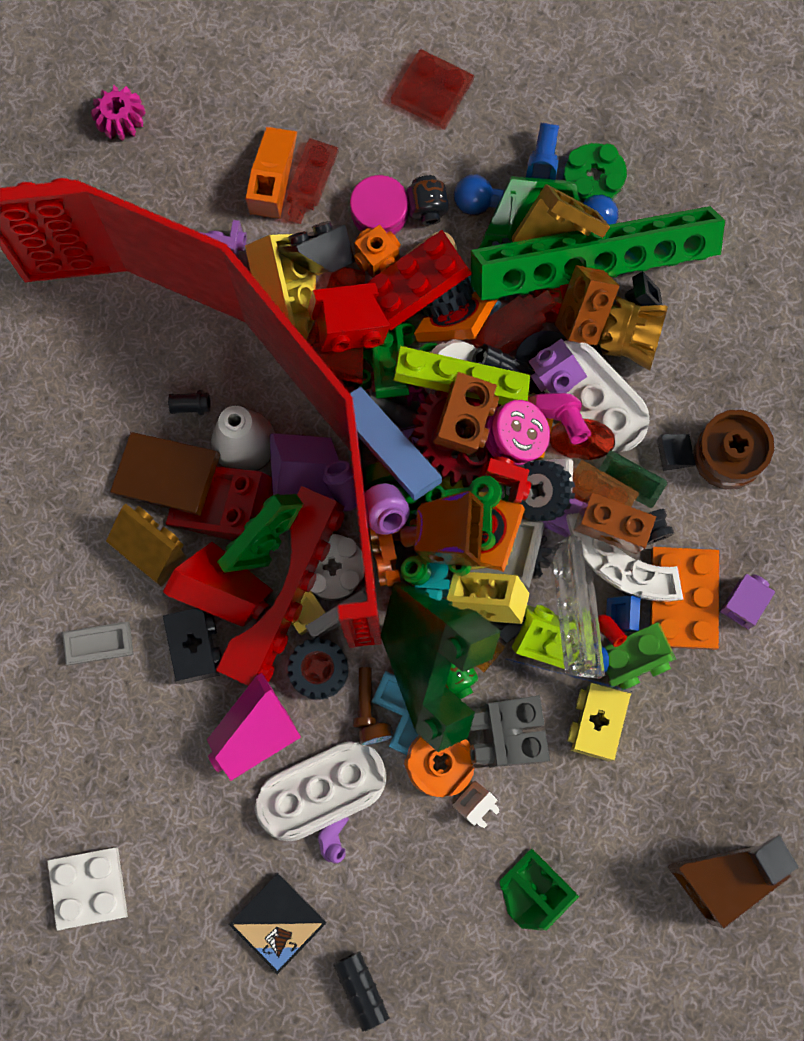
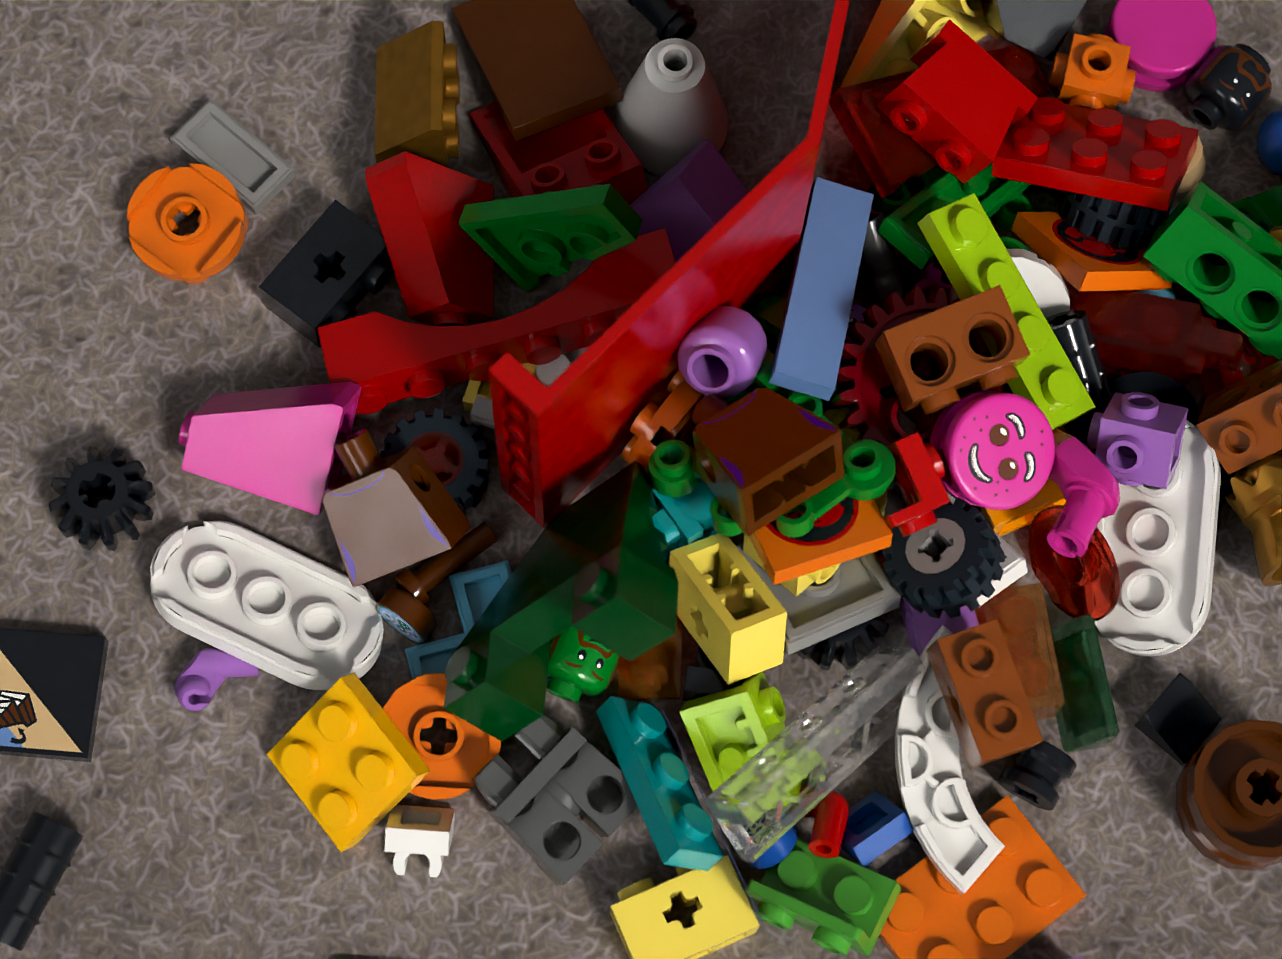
camera: 45 degrees right, 5 degrees down
(98, 677) = (194, 254): none -> orange plate
(224, 829) = (111, 516): none -> black gear
(328, 705) = (388, 510): none -> torso
(422, 810) = (348, 762): none -> yellow plate
(538, 686) = (659, 784): none -> teal plate

